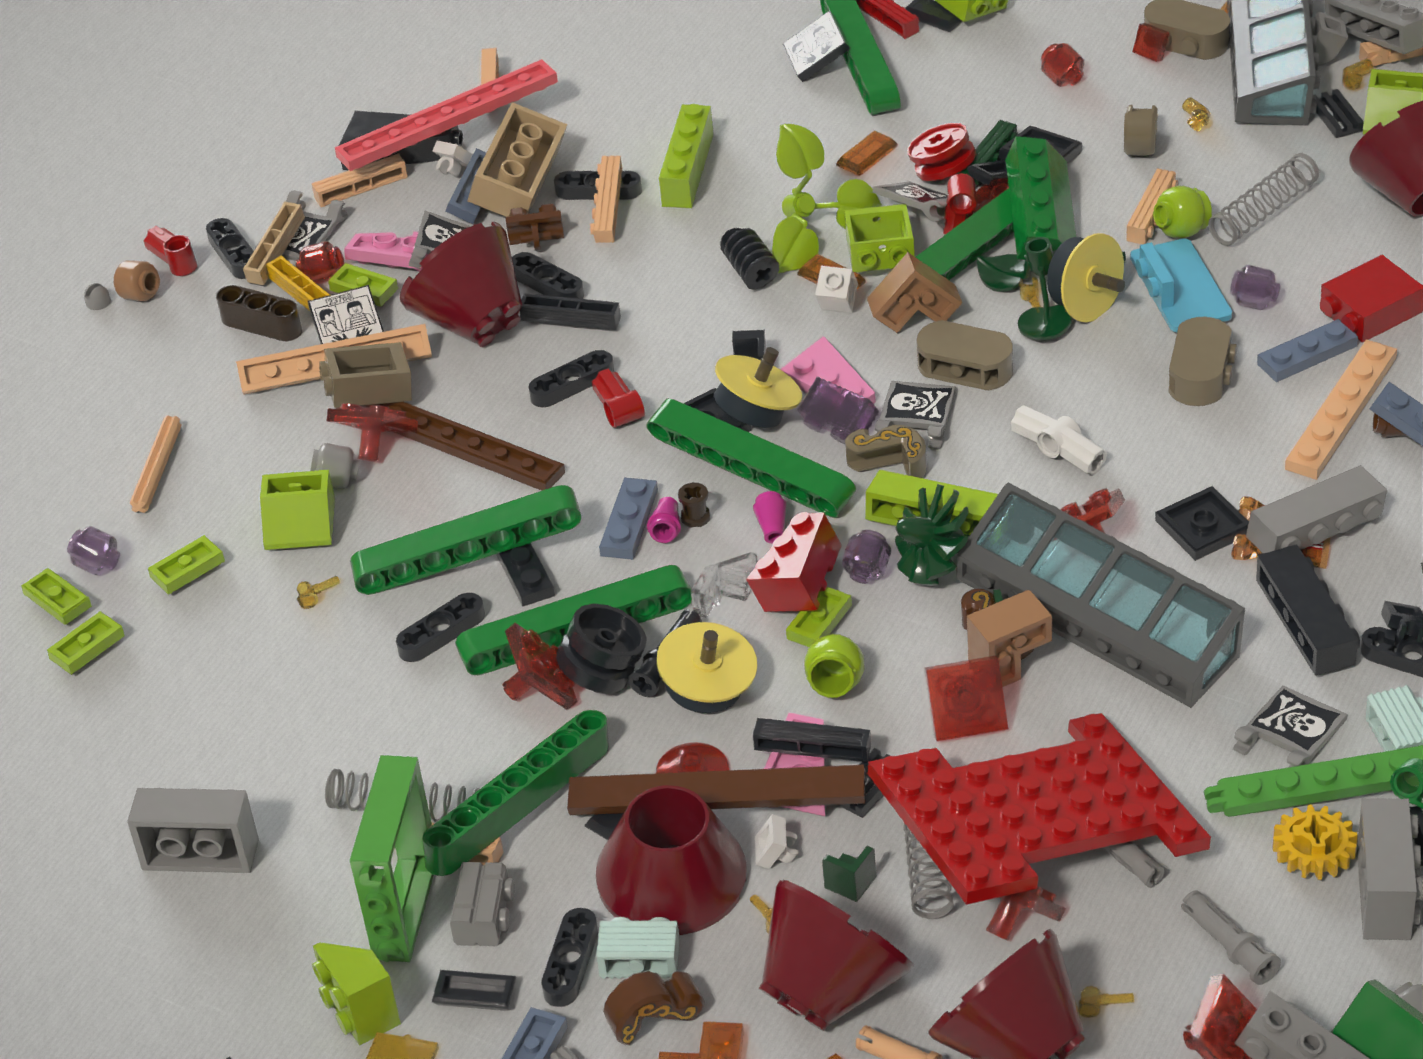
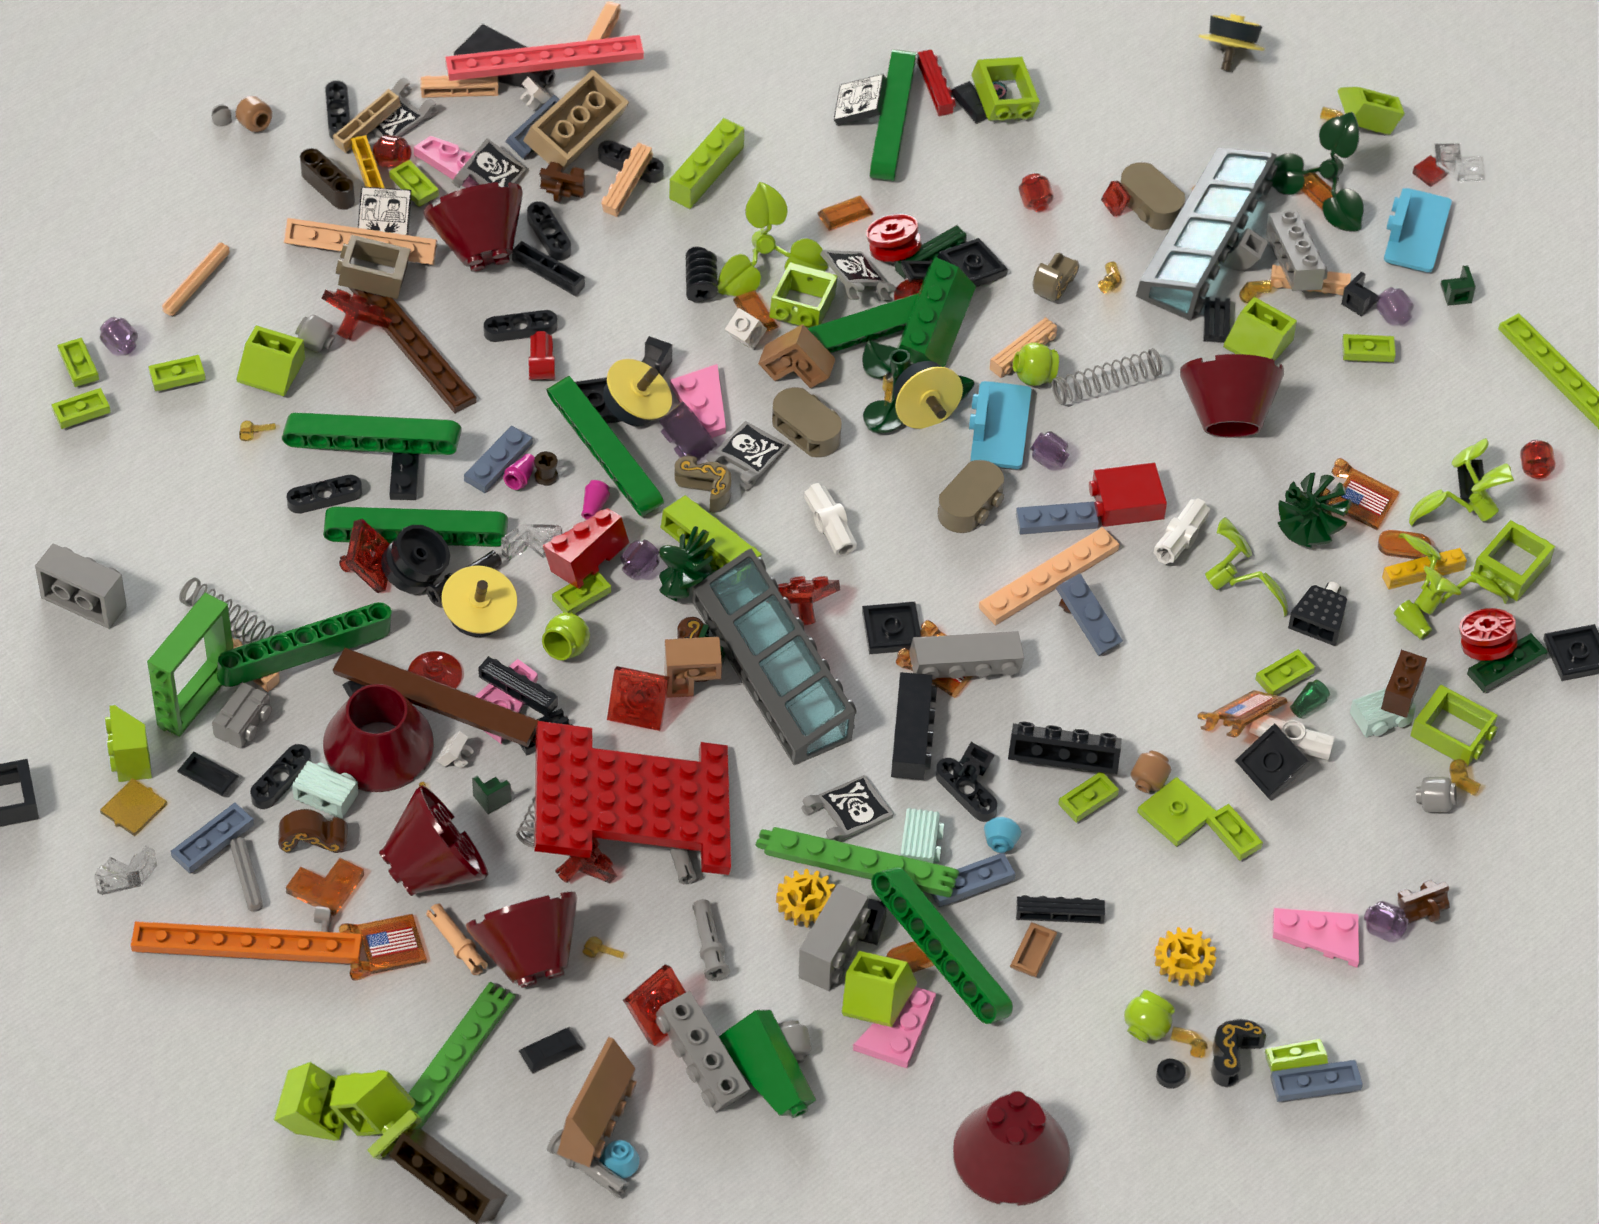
camera: 15 degrees right, 10 degrees up
(172, 249) = (292, 96): red piece -> none
(960, 201) = (875, 290): red piece -> none

